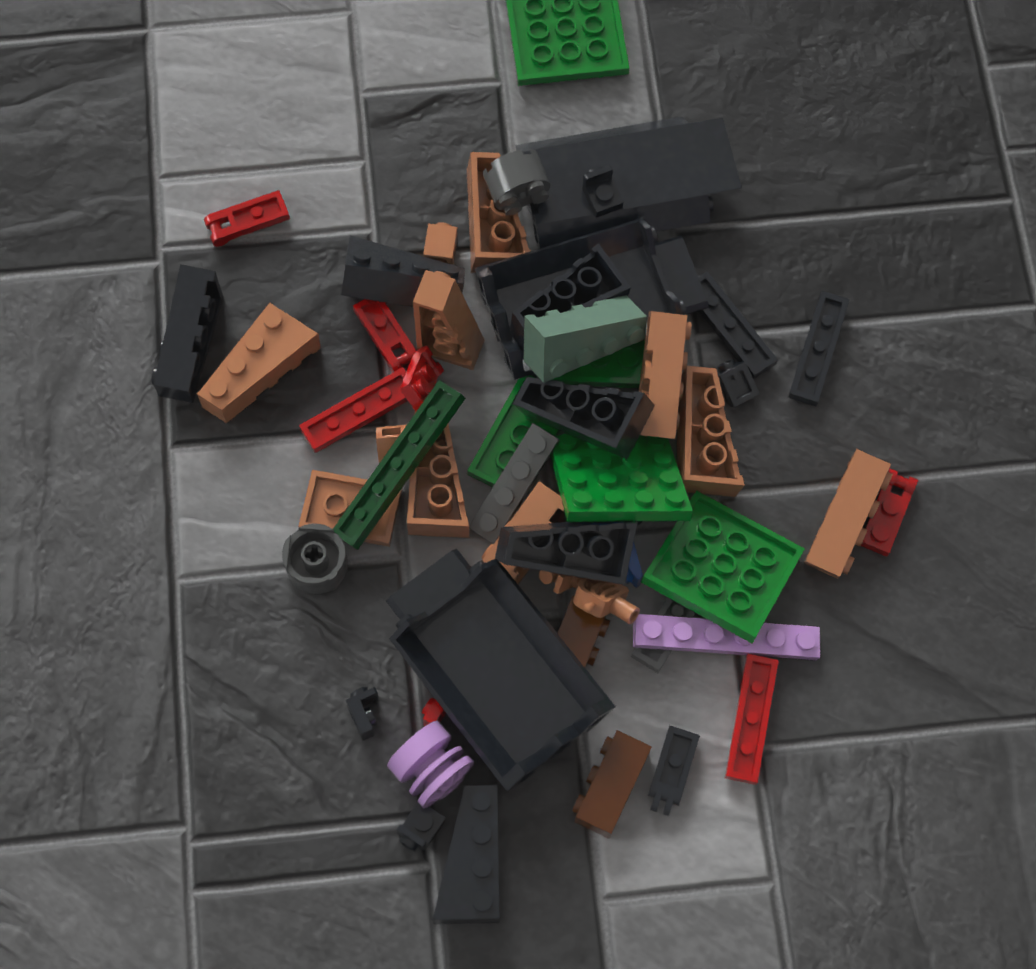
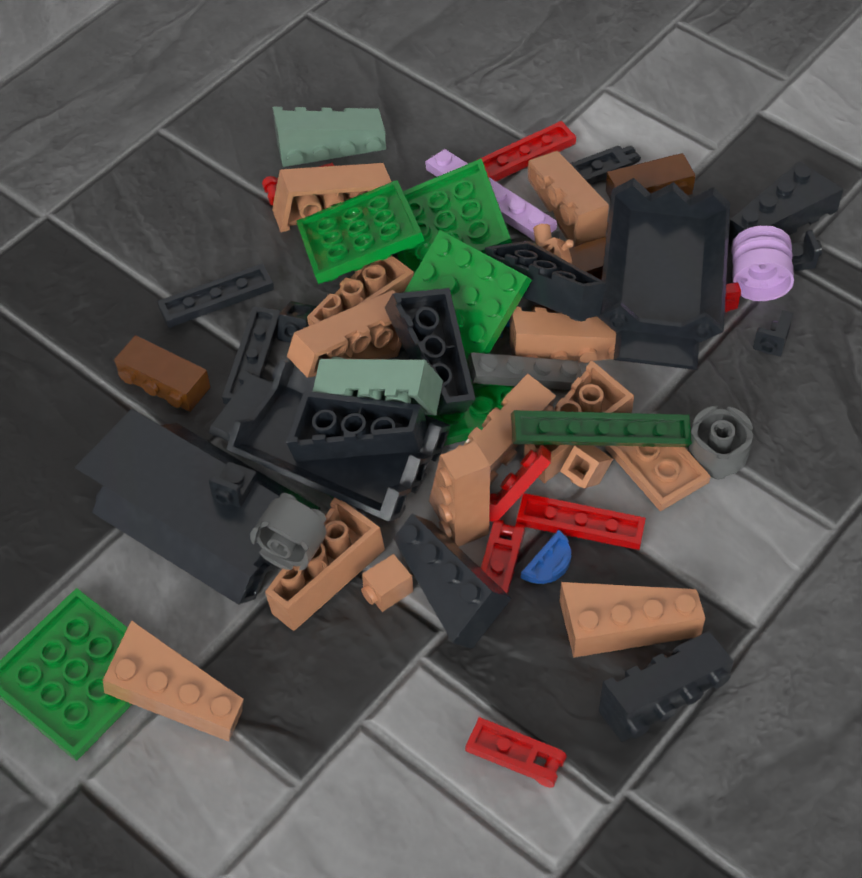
camera: 130 degrees left, 15 degrees down
(350, 362) = (550, 561): none -> blue plate
(477, 418) = (496, 436): none -> nougat wedge
(490, 57) = (170, 685): none -> nougat wedge
(661, 693) = (575, 203): none -> nougat wedge
(771, 251) = (162, 373): none -> reddish brown brick
(772, 484) = (359, 232): none -> green plate
(923, 569) = (327, 133): none -> sand green wedge

